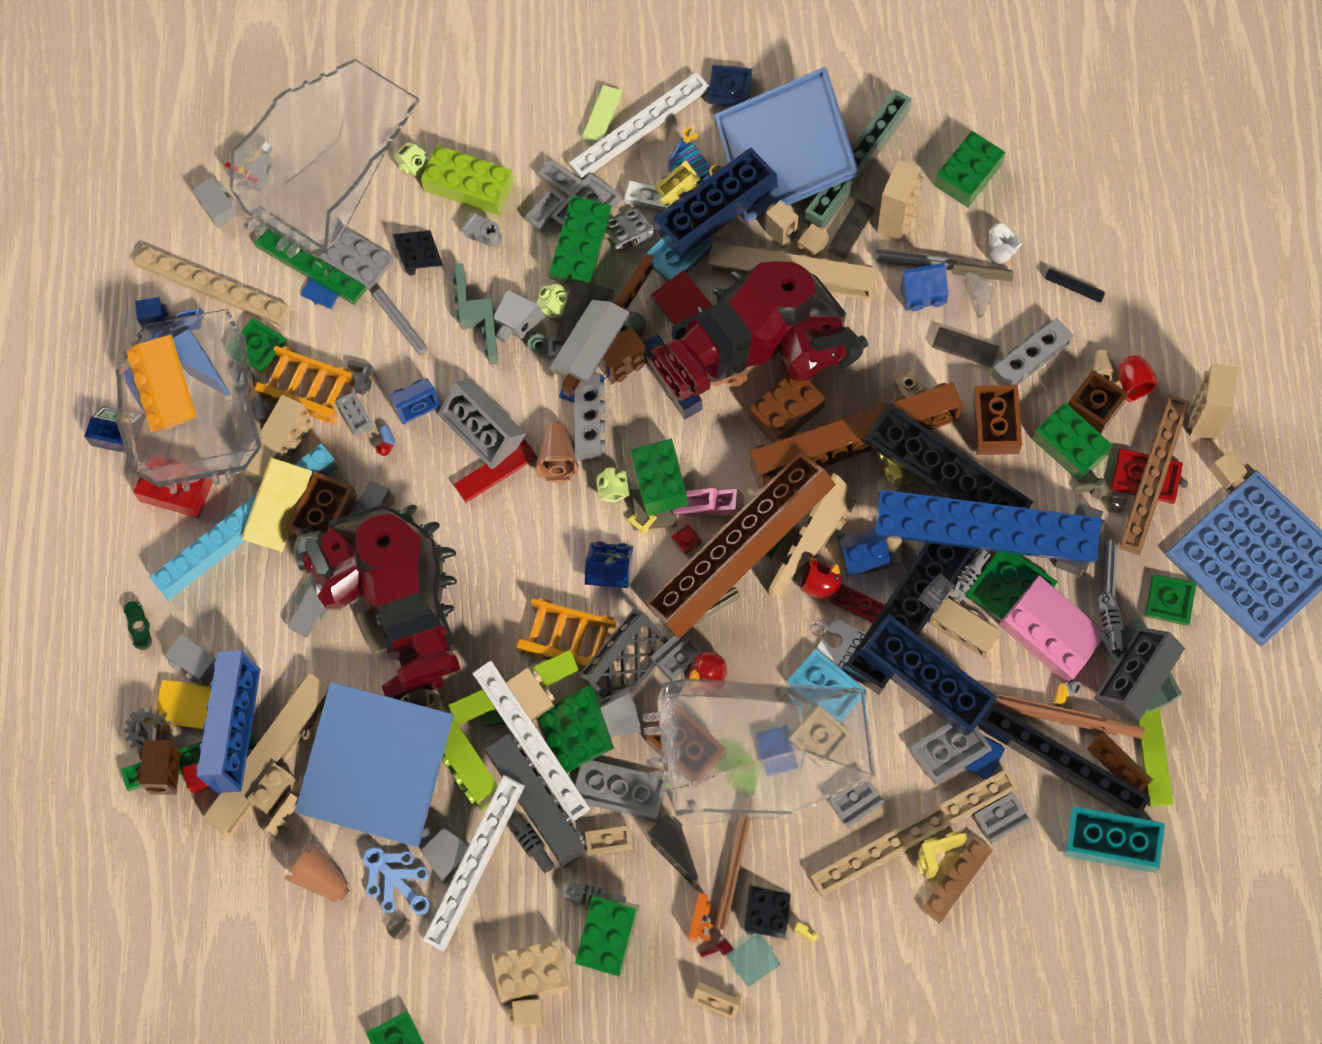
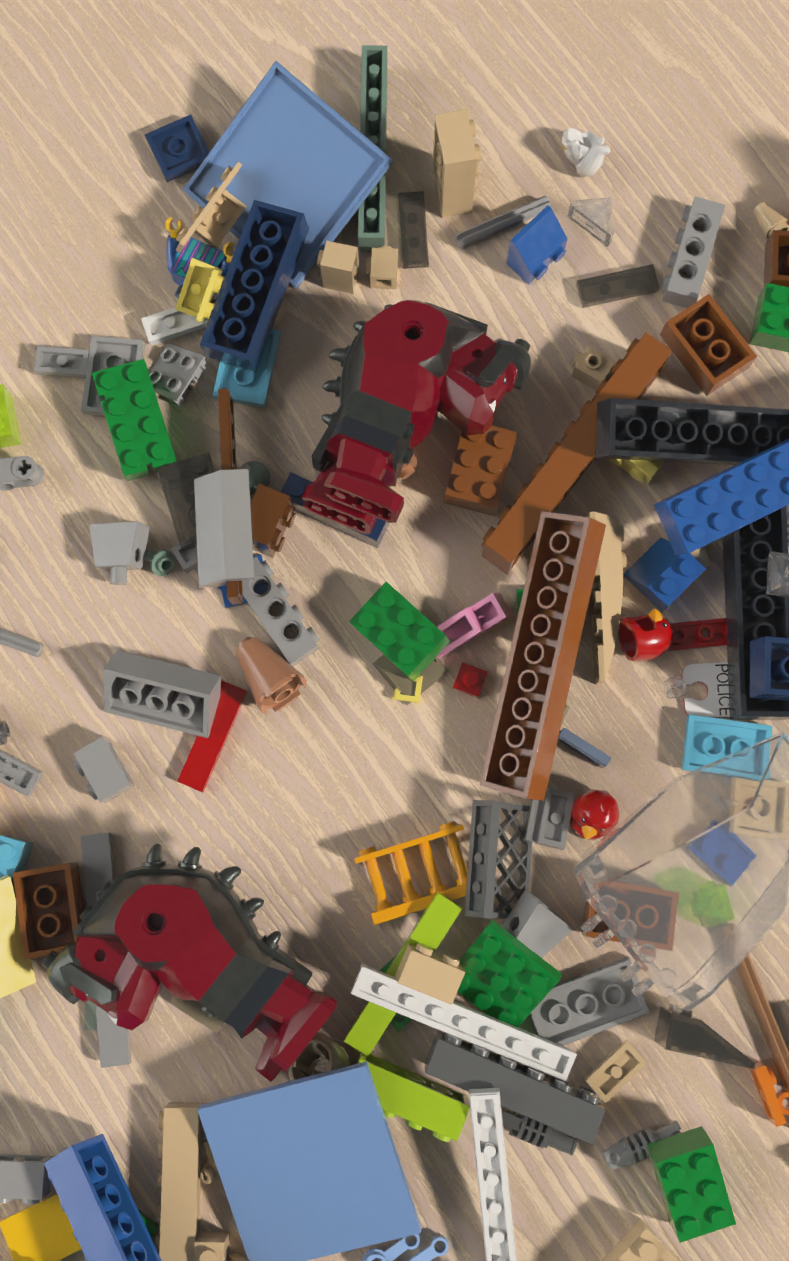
camera: 35 degrees left, 10 degrees up
(388, 441) = (71, 779): arm -> none
(412, 448) = (103, 770): none -> light grey brick
(415, 400) = (69, 714): blue slope -> none
(443, 852) = (450, 1207): light grey torso -> none
(475, 313) = (70, 572): sand green bracket -> none
(541, 213) = (68, 406): light grey plate -> none
(552, 300) = (148, 504): yellowish green brick -> none
(602, 114) = (60, 262): yellowish green tile -> none
(608, 564) = (409, 763): clear blue slope -> none
(612, 485) = (352, 672): yellowish green brick -> none
(639, 126) = (109, 251): white plate -> none
(680, 298) = (291, 419): red tile -> none
(722, 144) = (218, 215): none -> tan bracket
(730, 626) = (583, 748): none -> sand blue tile
(837, 277) = (335, 329): tan brick -> none
(969, 169) = (495, 88): green brick -> none
(983, 271) = (583, 192): dark tan axle -> none
(1075, 285) = (683, 151): black axle -> none

